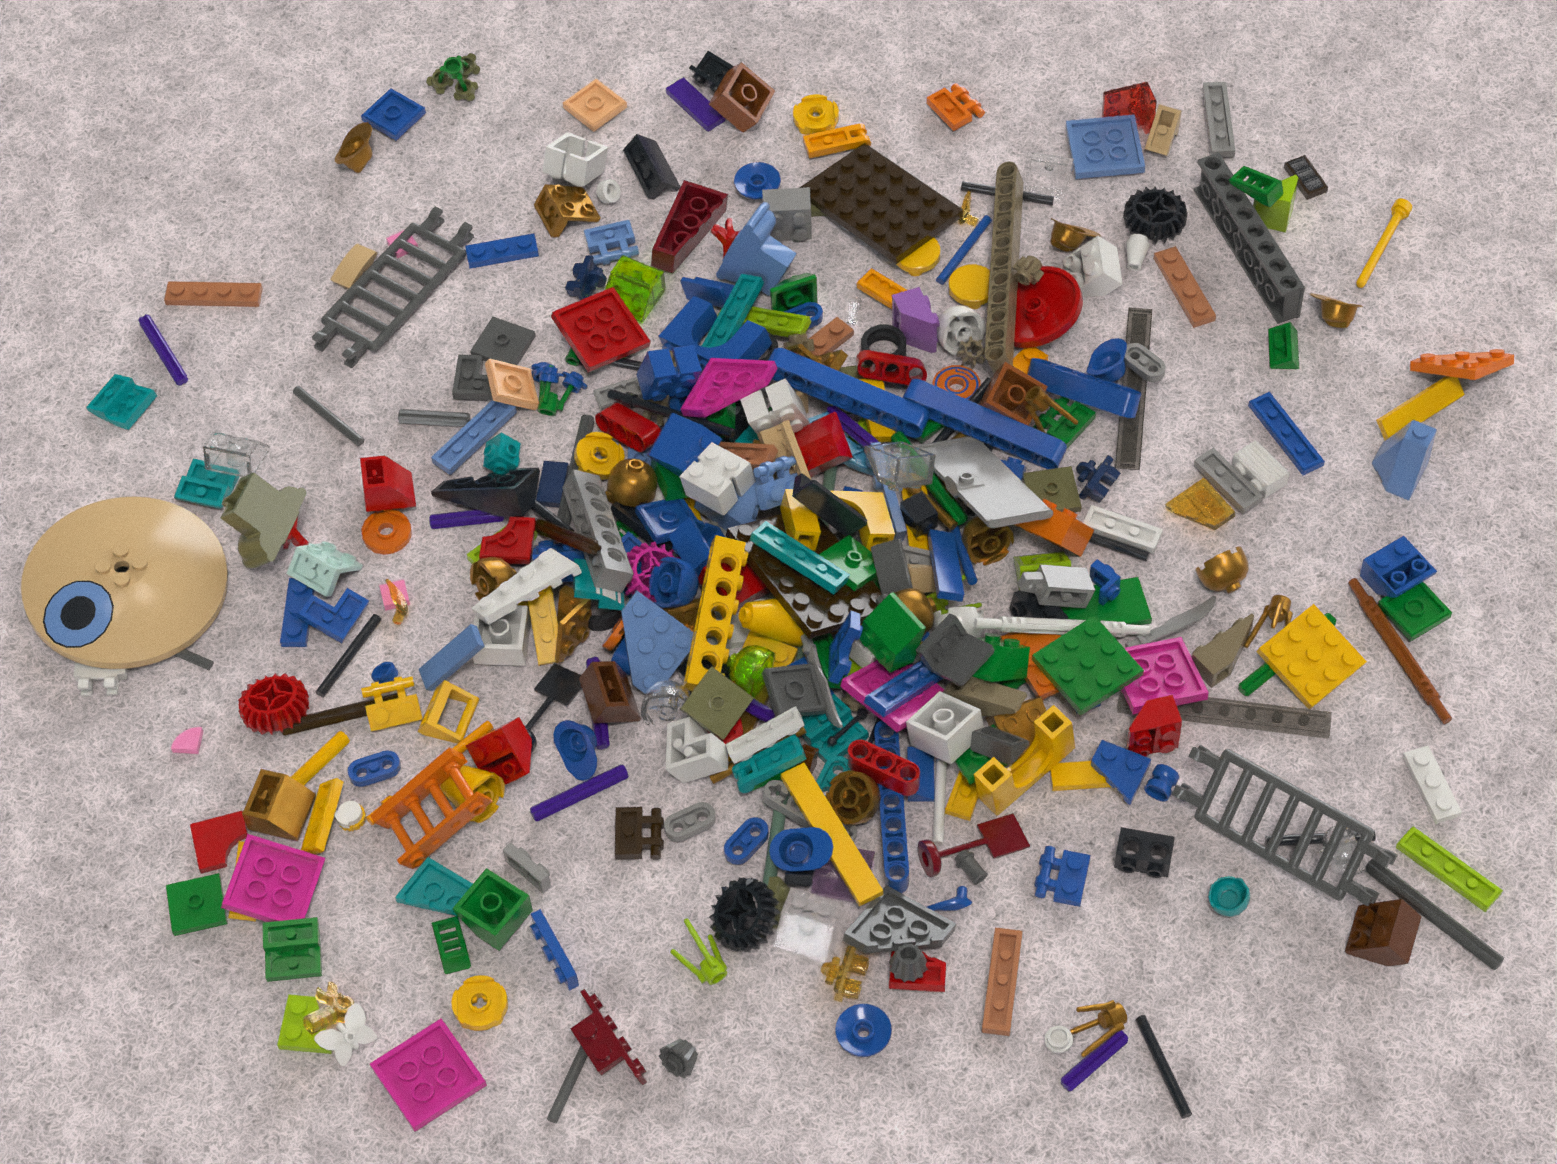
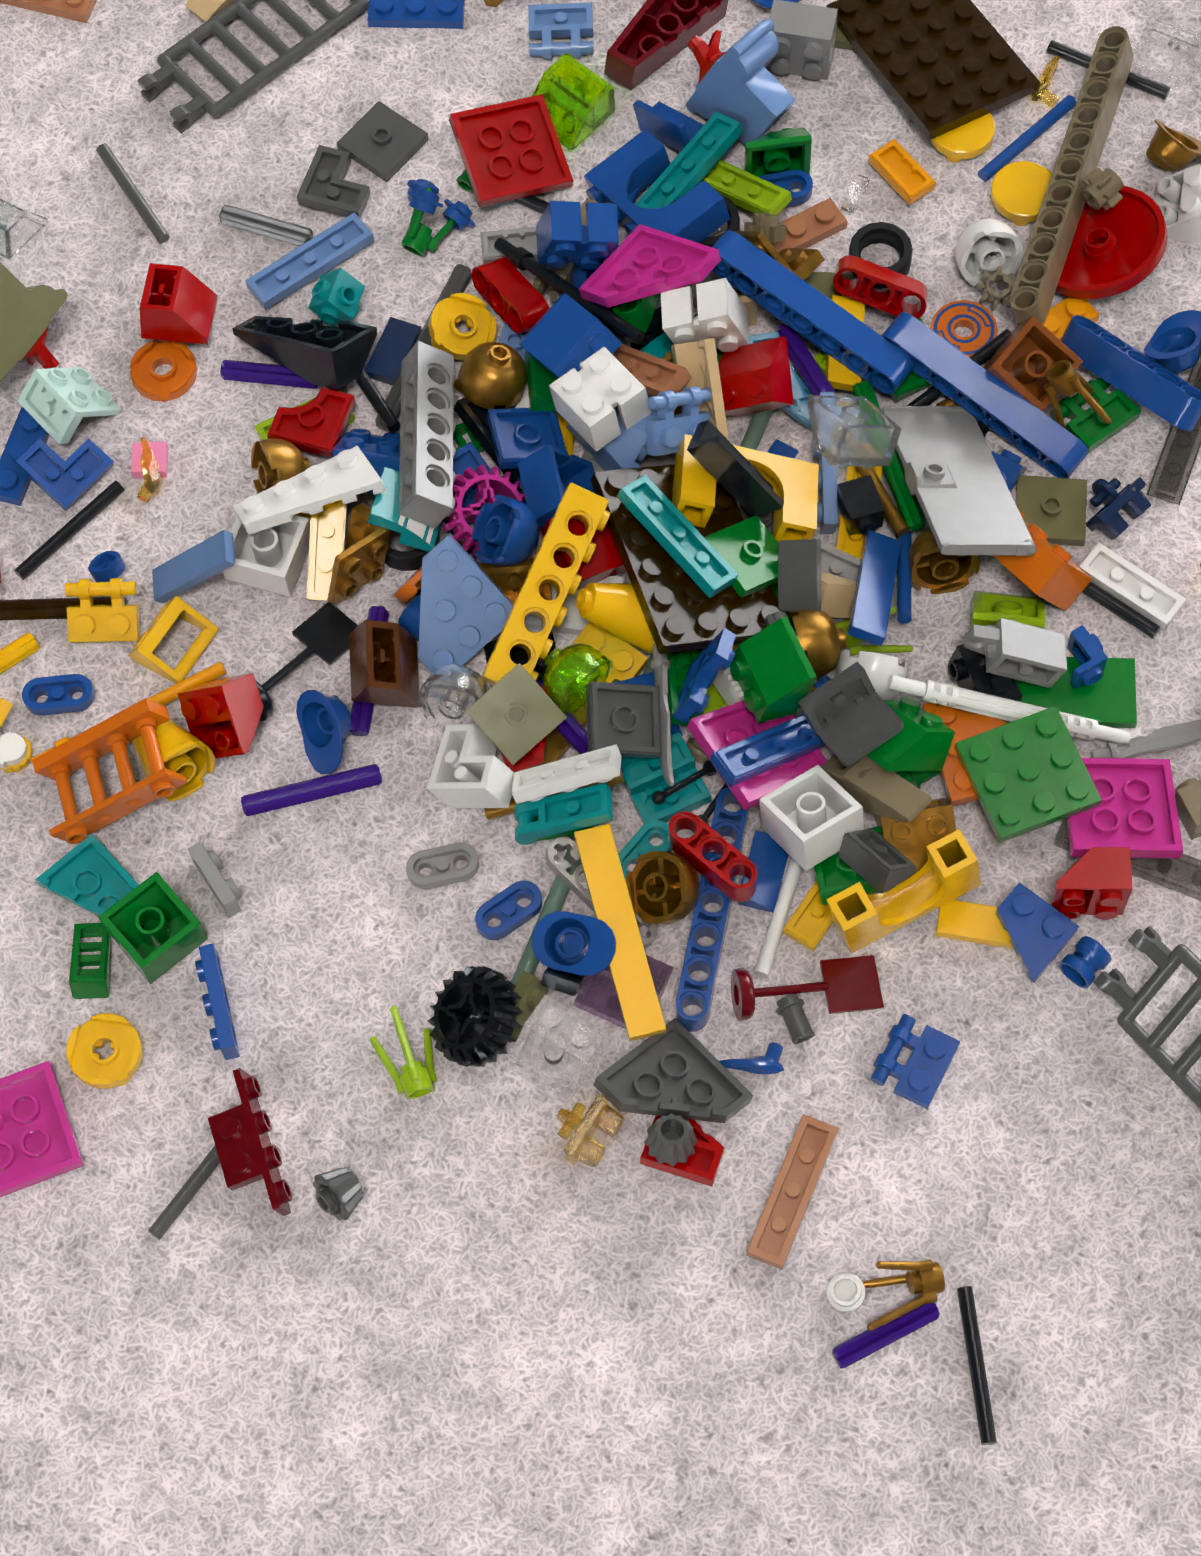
camera: 15 degrees right, 10 degrees up
(511, 384) = (375, 202): light nougat plate -> none
(567, 537) = (385, 434): dark brown axle -> none
(587, 277) = (516, 73): dark blue hips -> none
(629, 833) = (360, 862): dark brown plate -> none
(811, 754) = (623, 813): reddish brown piece -> none
(863, 1018) = (586, 1196): blue dish -> none
(915, 319) = (931, 225): medium lavender slope -> none
(1145, 846) = (1038, 1048): black brick -> none
(1229, 896) = (1132, 1147): teal hair -> none

